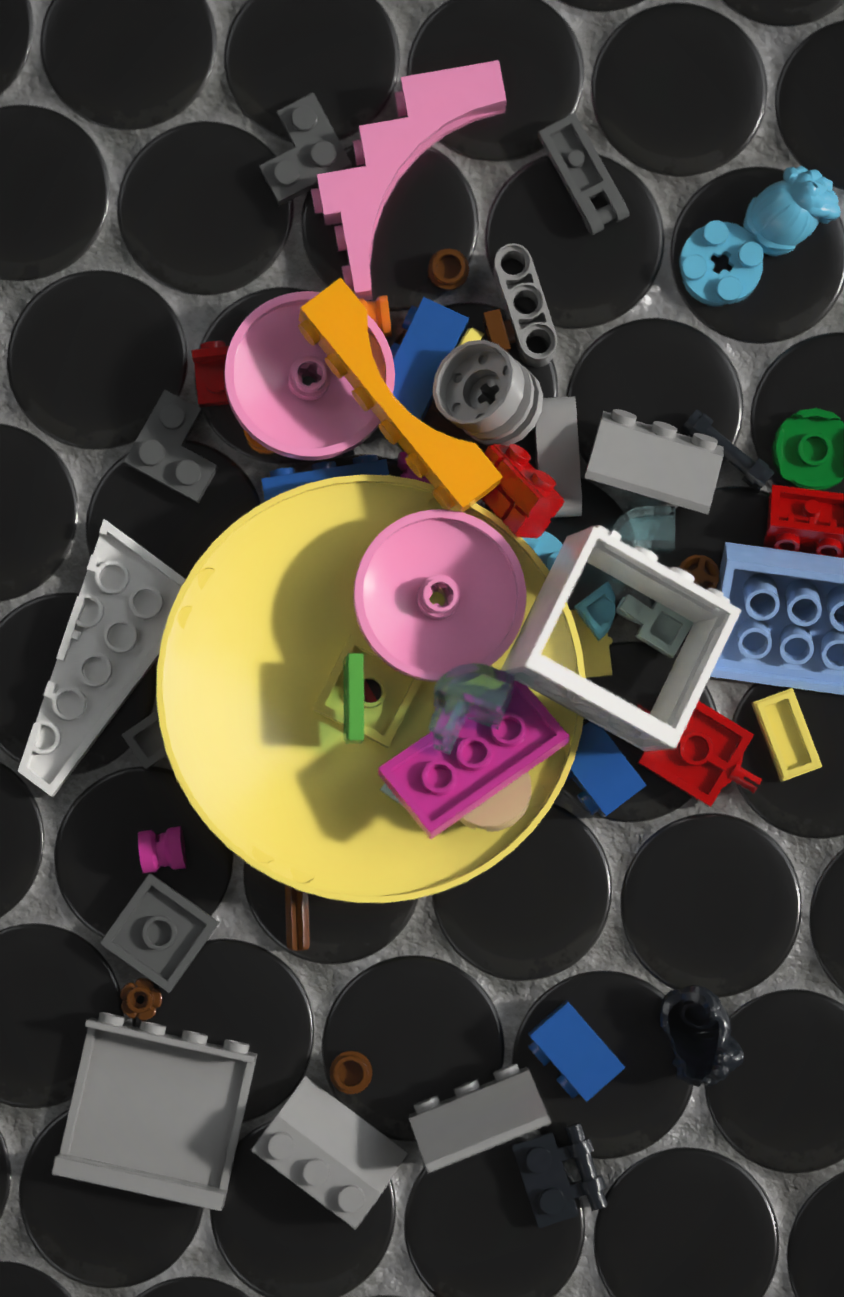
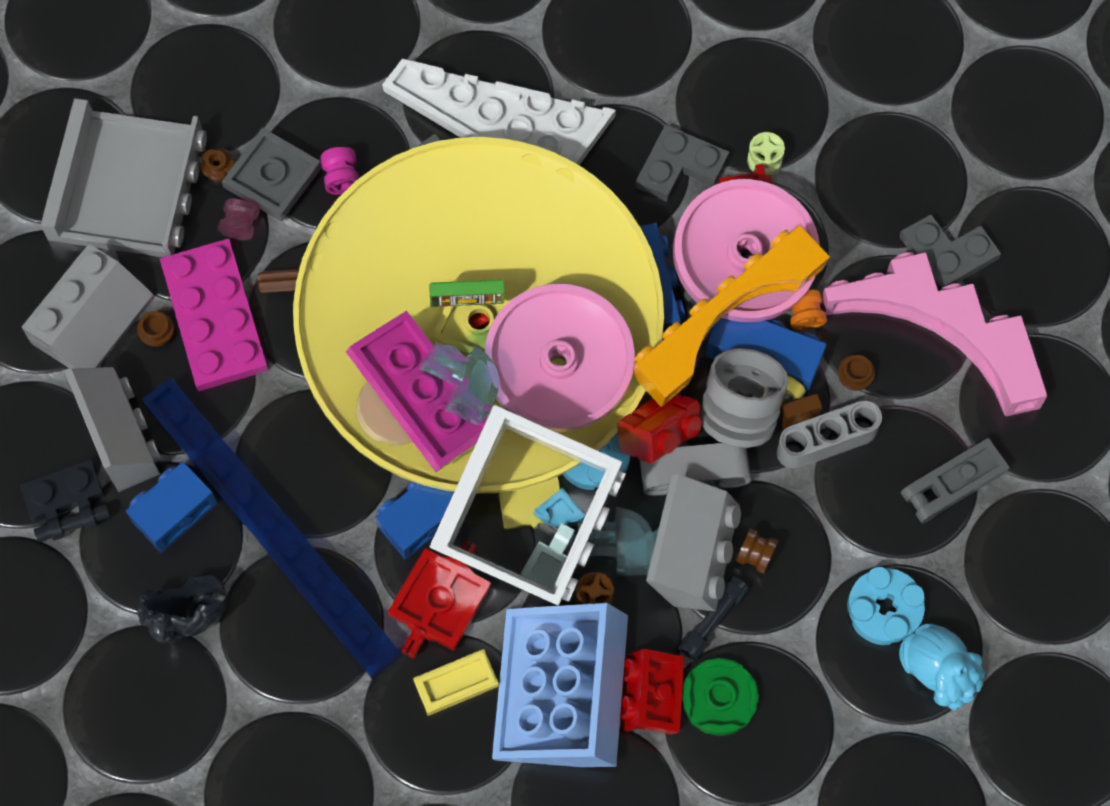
camera: 90 degrees right, 15 degrees down
(169, 338) = (769, 146): none -> yellowish green wheel
(219, 972) = (238, 219): none -> clear pink wheel
(334, 1004) = (213, 315): none -> dark pink plate
(600, 939) = (272, 529): none -> clear blue plate
(656, 395) = (757, 551): none -> reddish brown wheel

